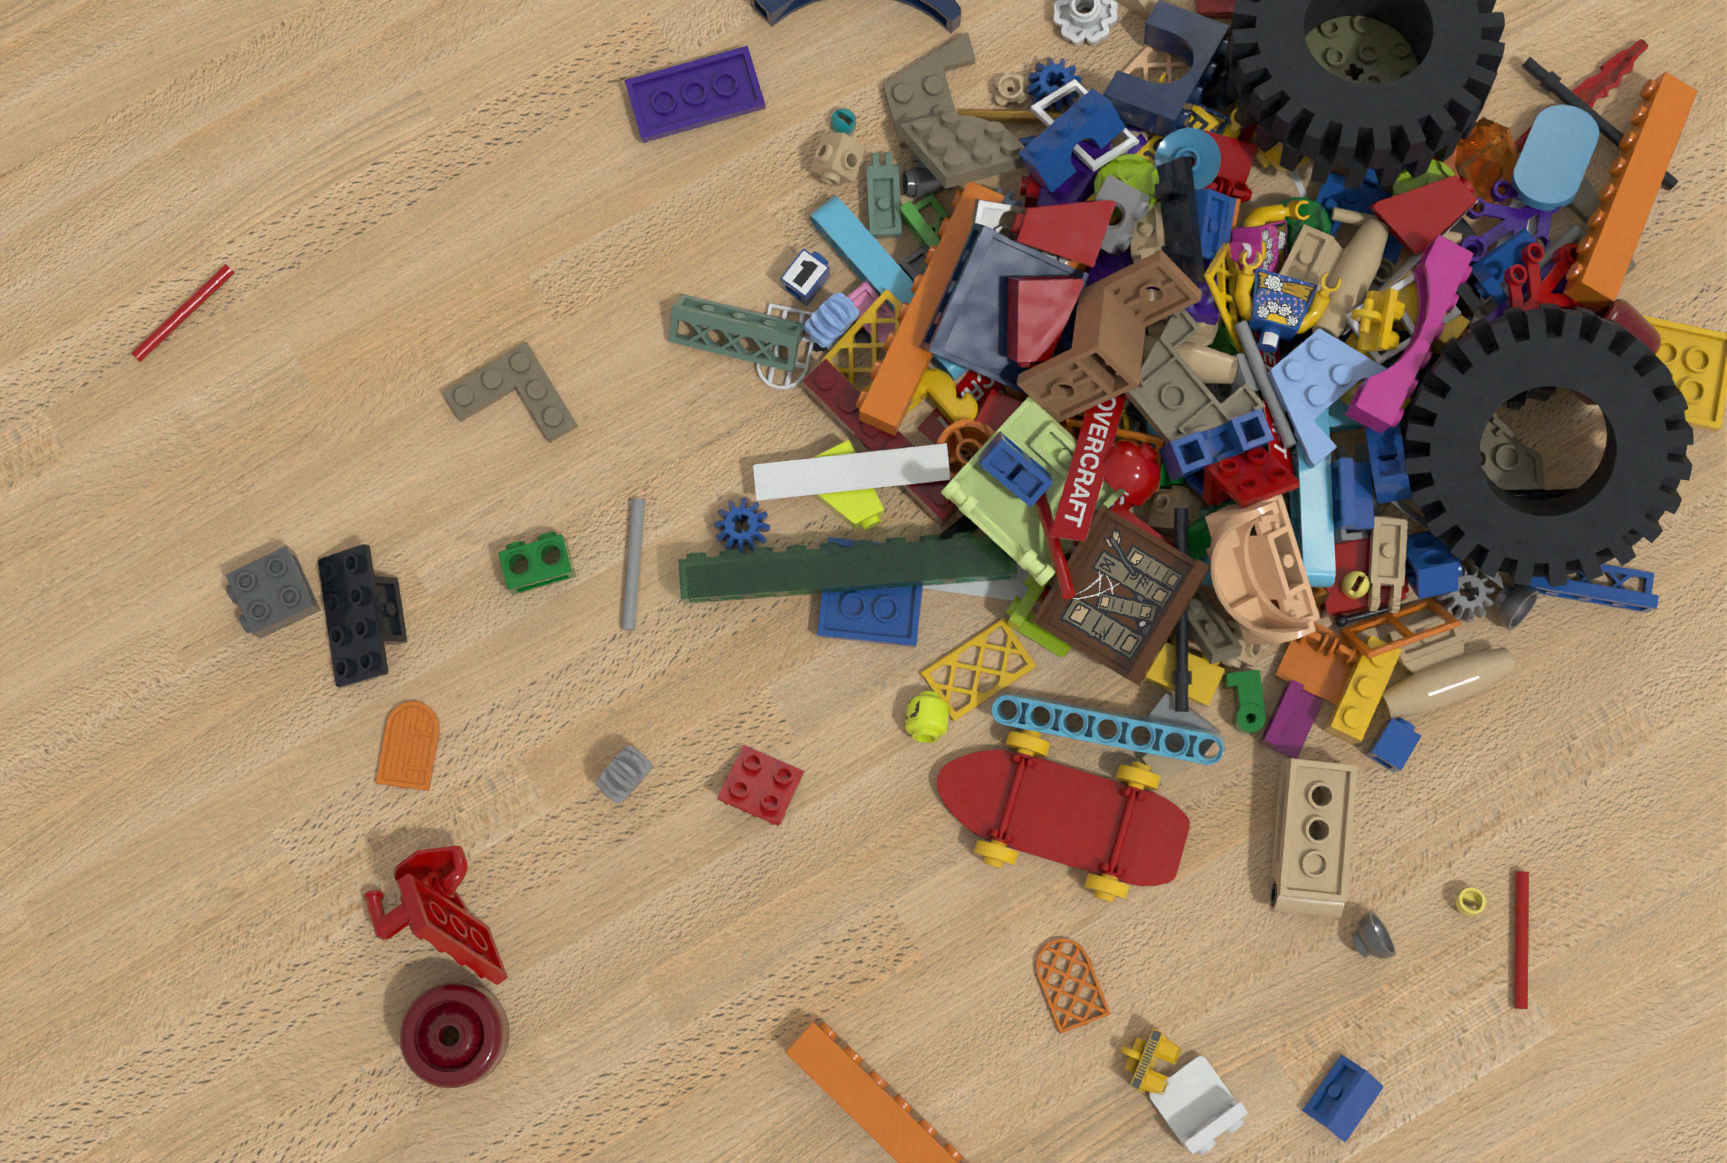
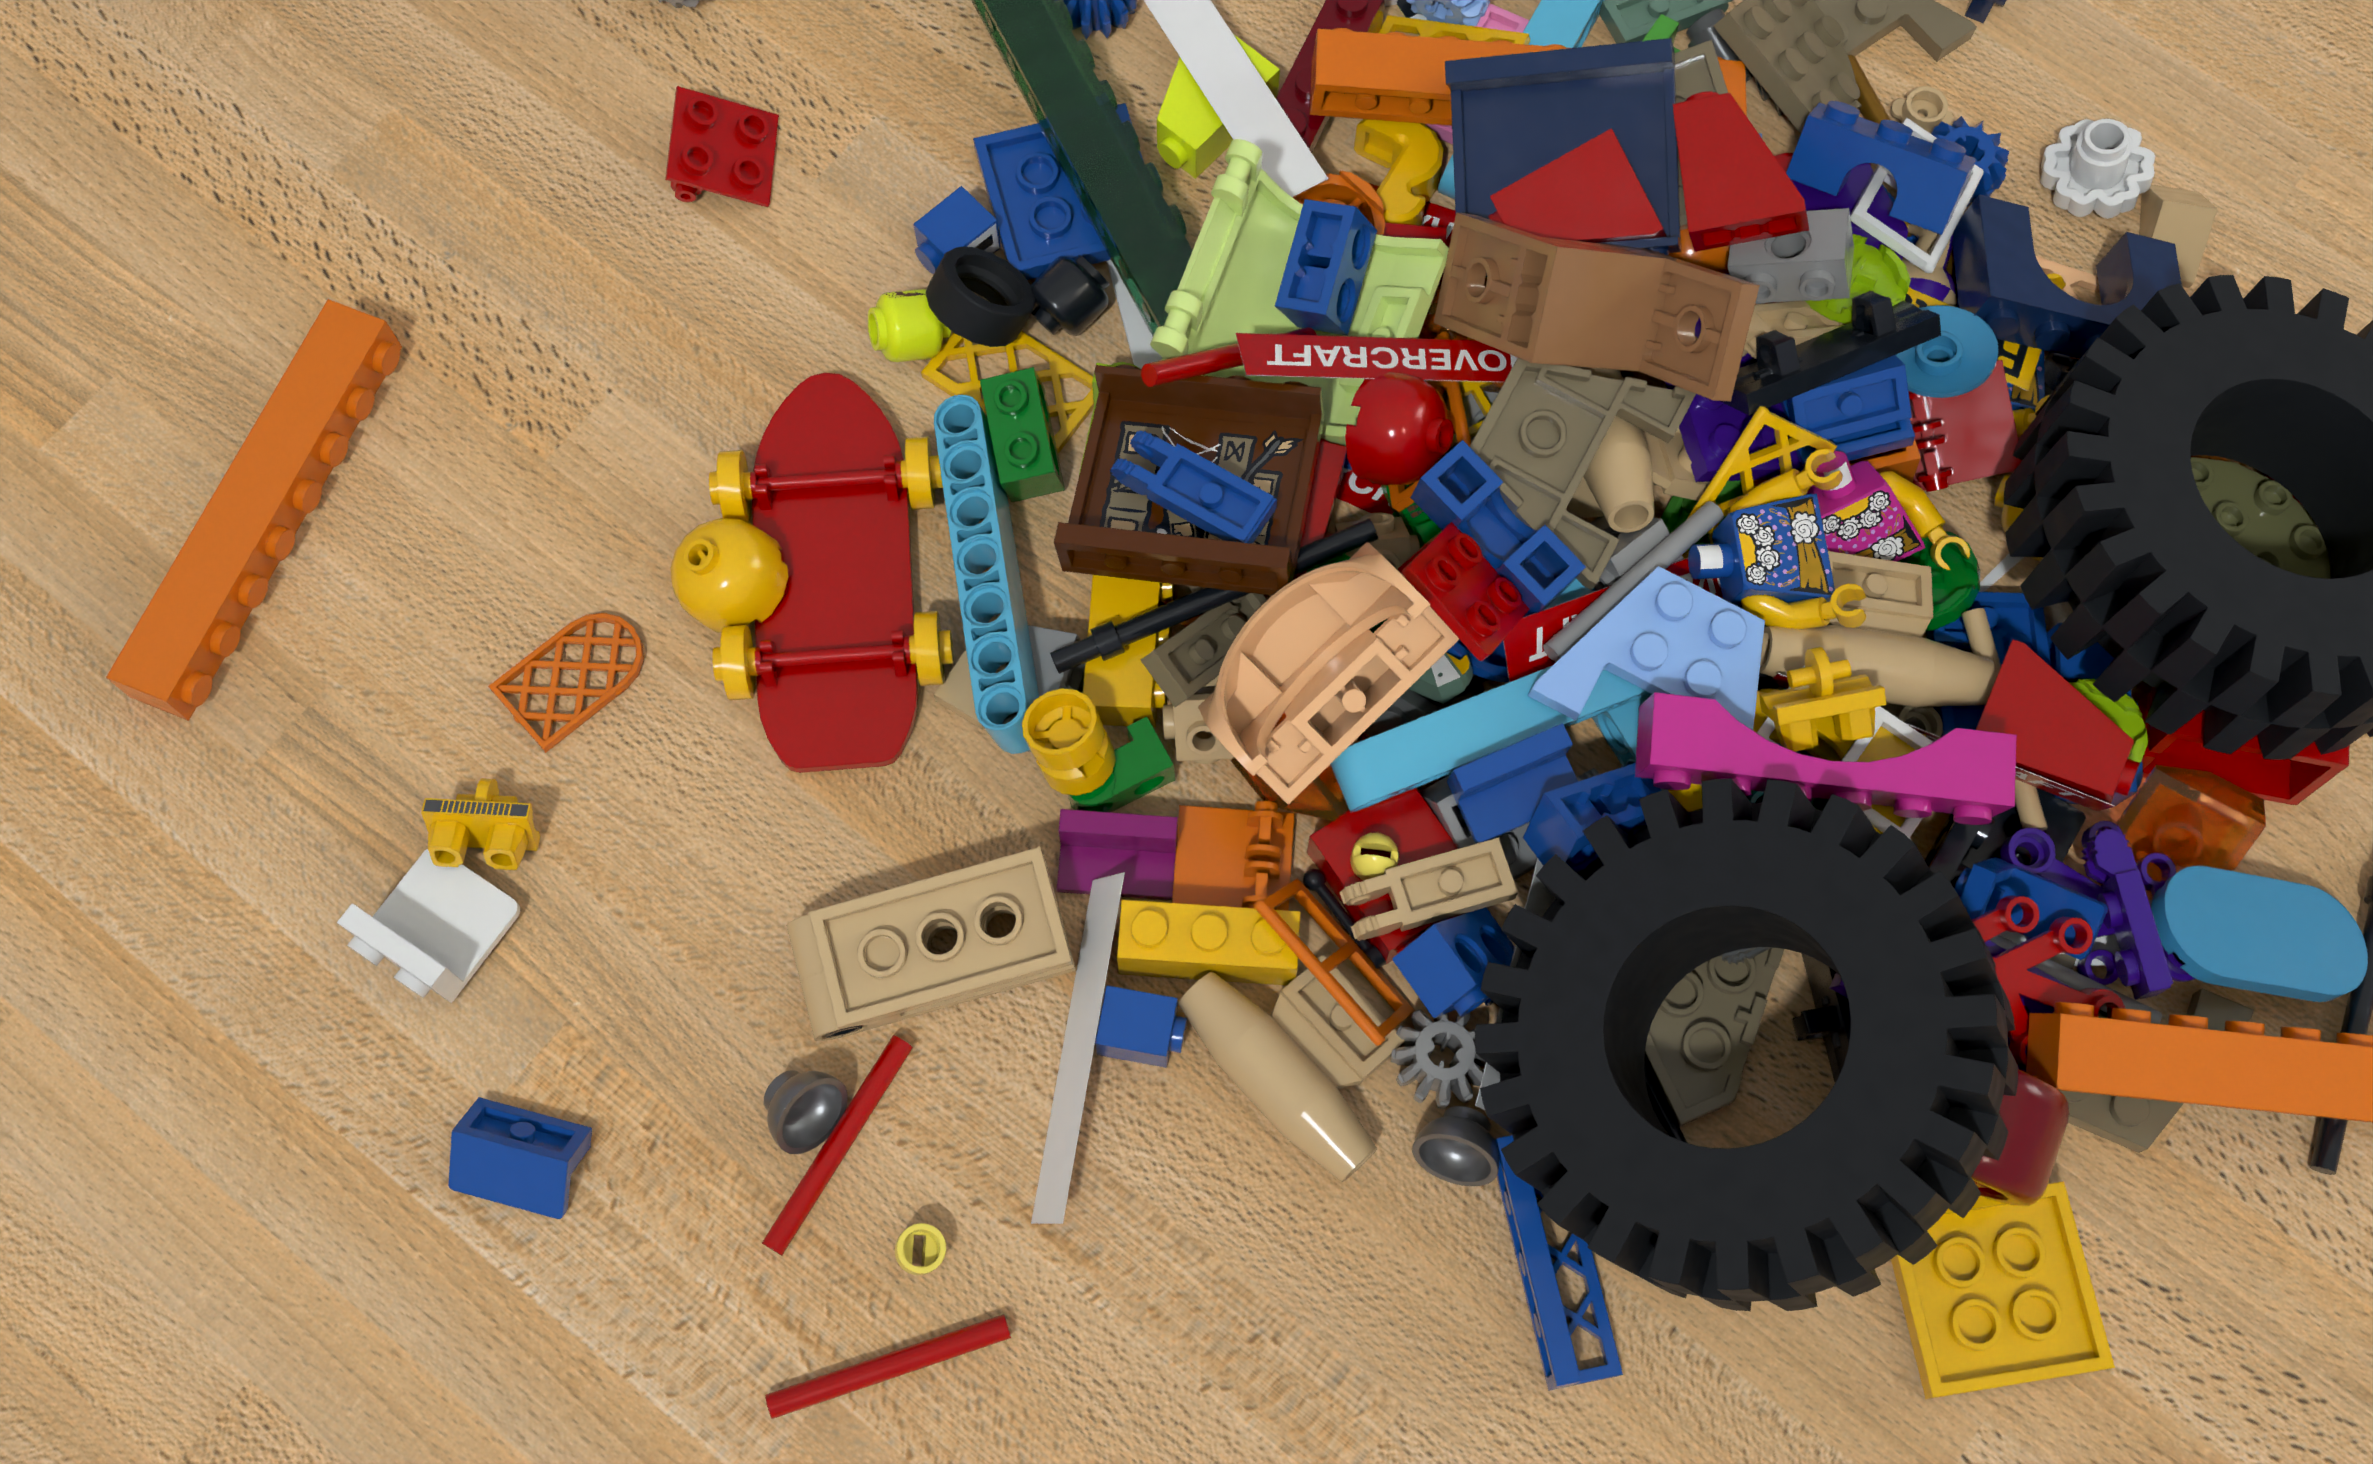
camera: 65 degrees right, 10 degrees down
(878, 669) = (953, 224): none -> blue brick
(937, 686) = (970, 316): none -> black tyre
(943, 618) = (1069, 295): none -> black head
(1028, 678) = (1022, 435): none -> green brick
(1050, 861) = (728, 573): none -> yellow cylinder
(1134, 594) = (1197, 490): none -> blue hinge
(1235, 720) = (1068, 741): none -> yellow wheel
(1394, 780) = (1077, 1051): none -> white sticker
(1396, 926) = (837, 1145): none -> red bar
(1520, 217) = (2141, 954): none -> dark purple hinge

